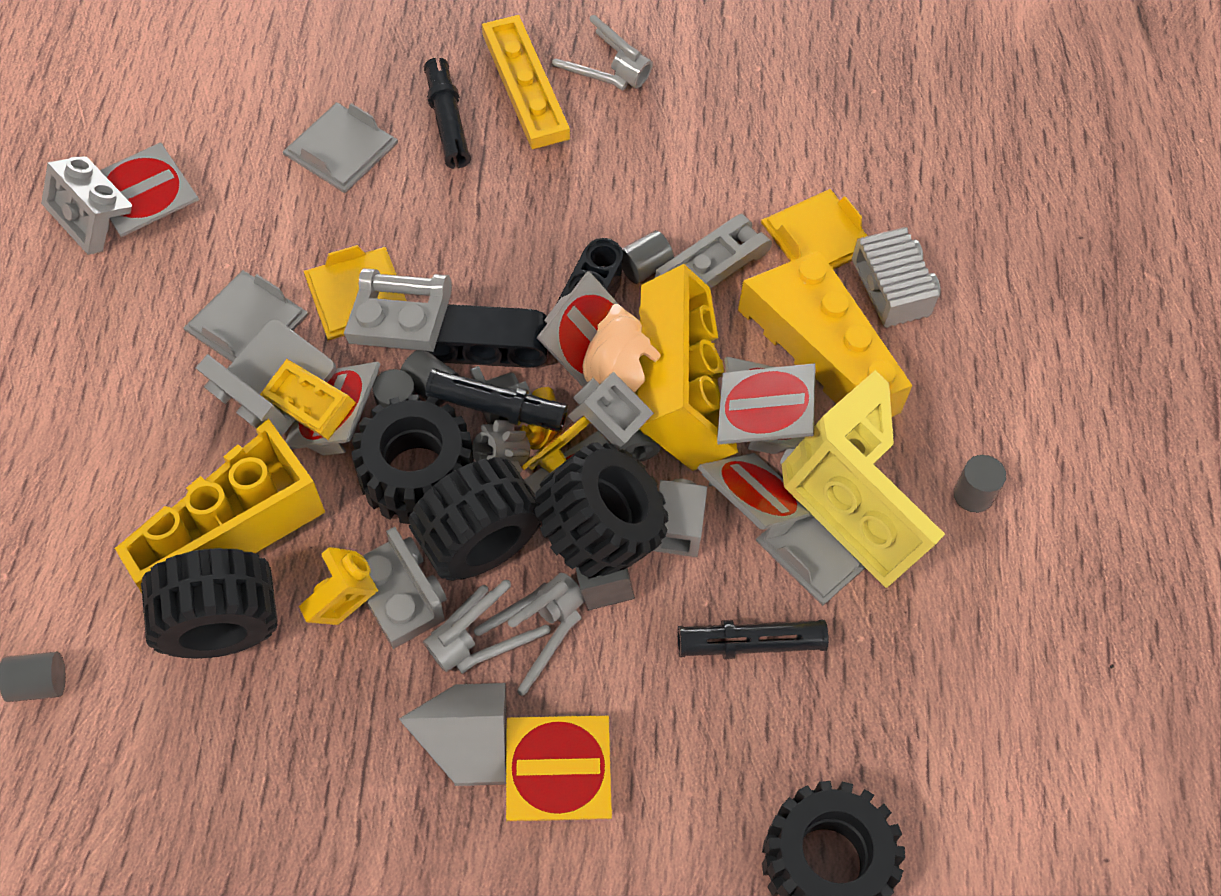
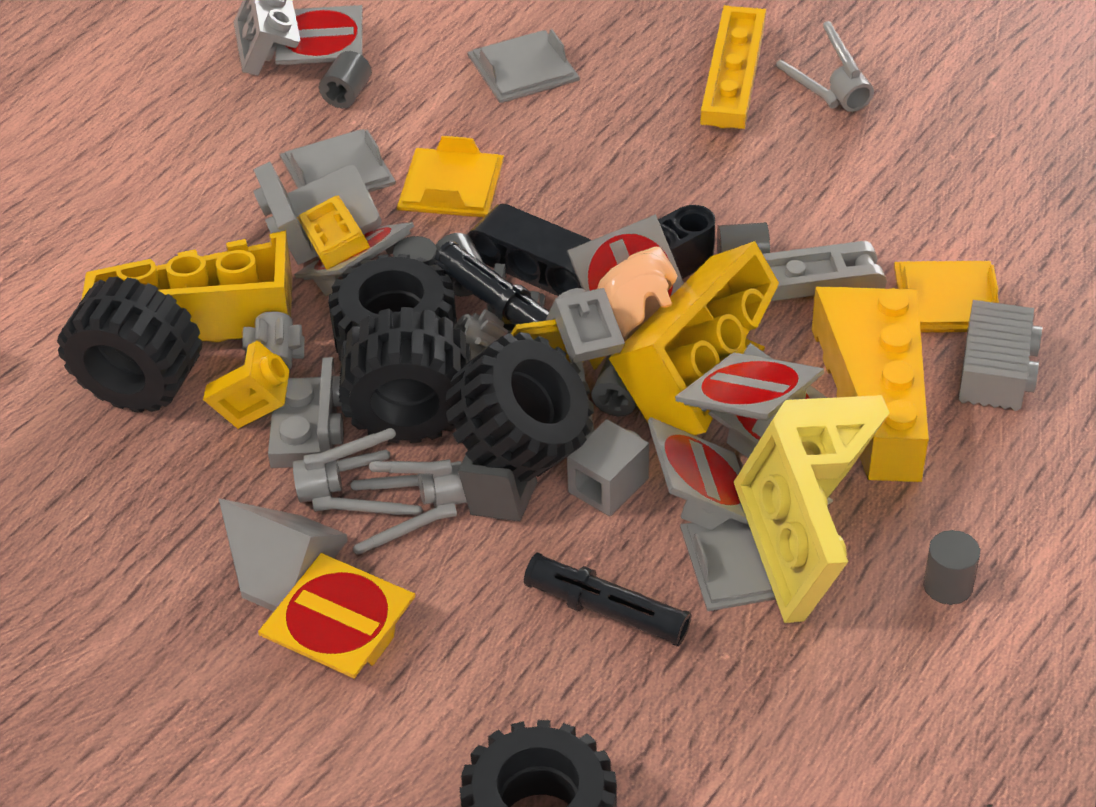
camera: 35 degrees right, 15 degrees down
(197, 227) = (345, 79): none -> dark grey piece
(323, 529) = (277, 334): none -> light grey gear
(395, 321) = (463, 207): light grey plate -> none
(444, 99) = (643, 56): black pin -> none

